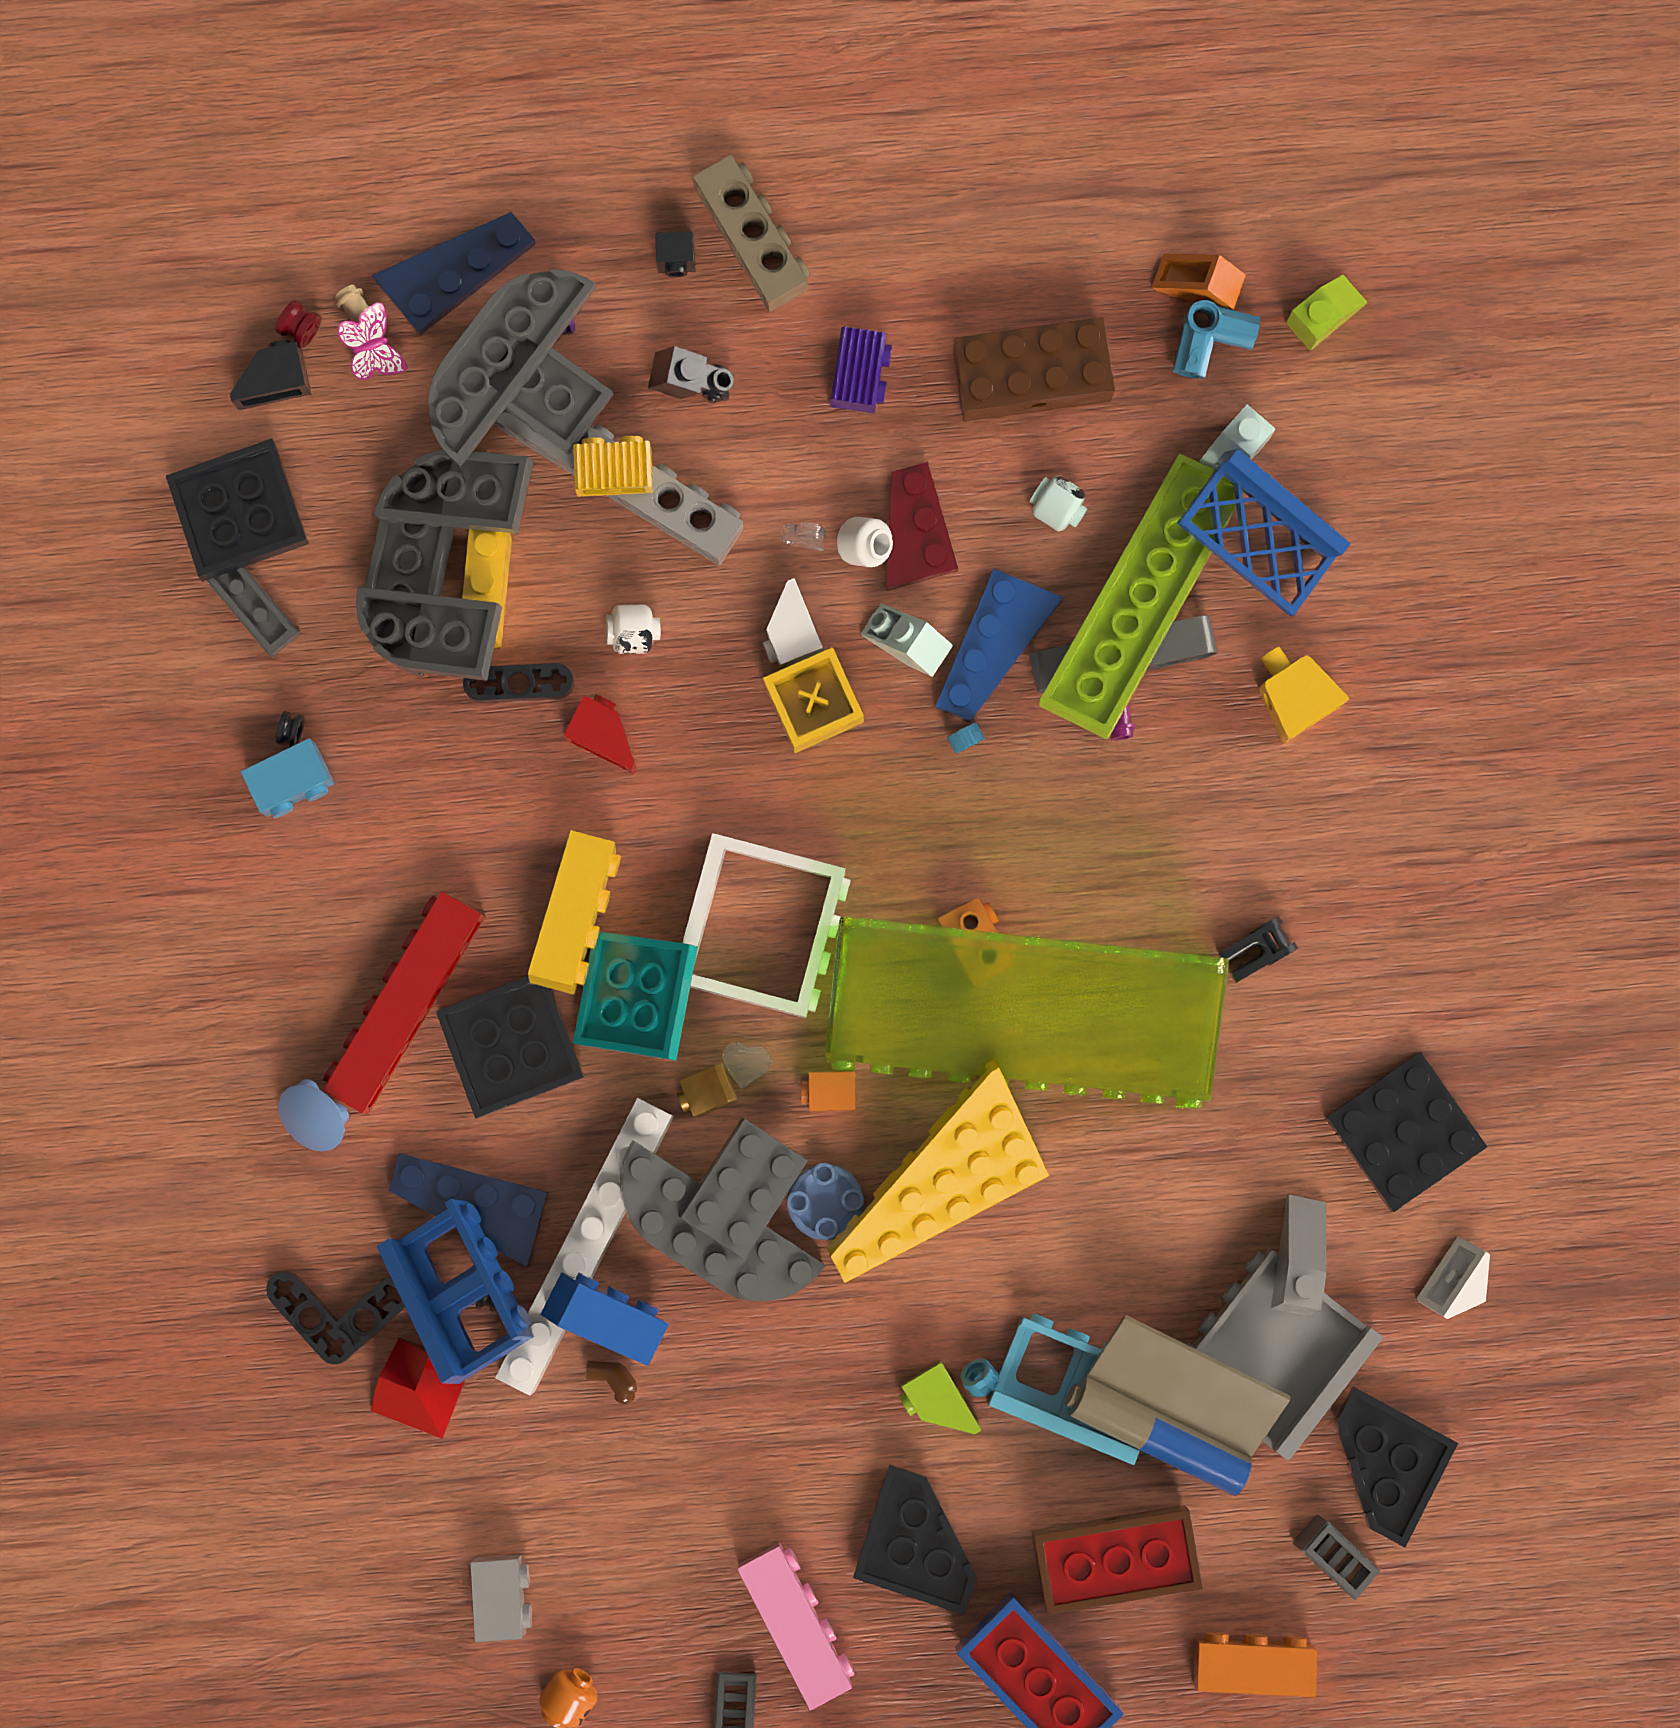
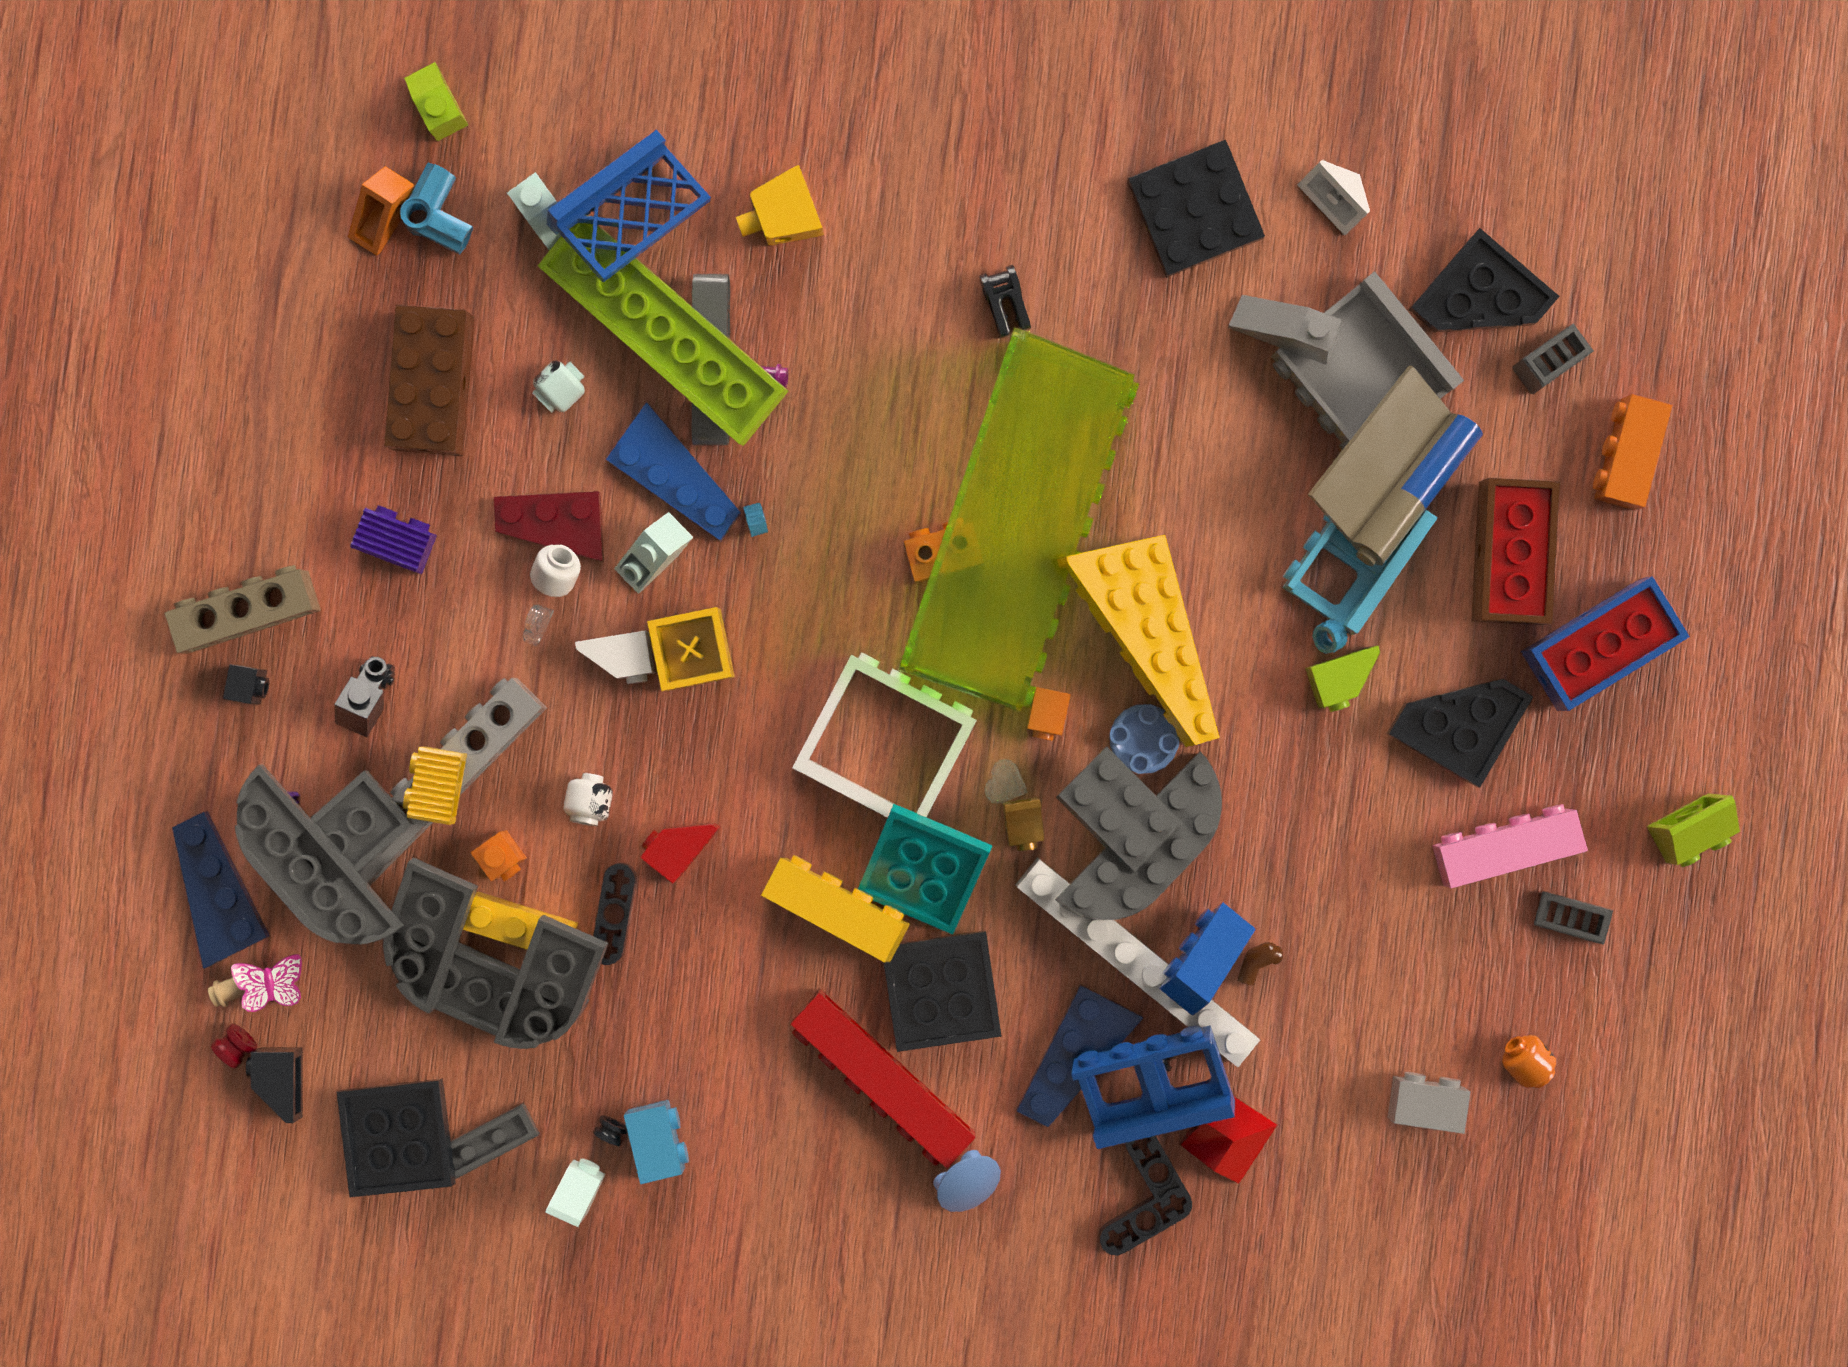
camera: 80 degrees left, 5 degrees up
(218, 707) = (576, 1192): none -> light aqua slope
(553, 550) = (499, 856): none -> orange brick

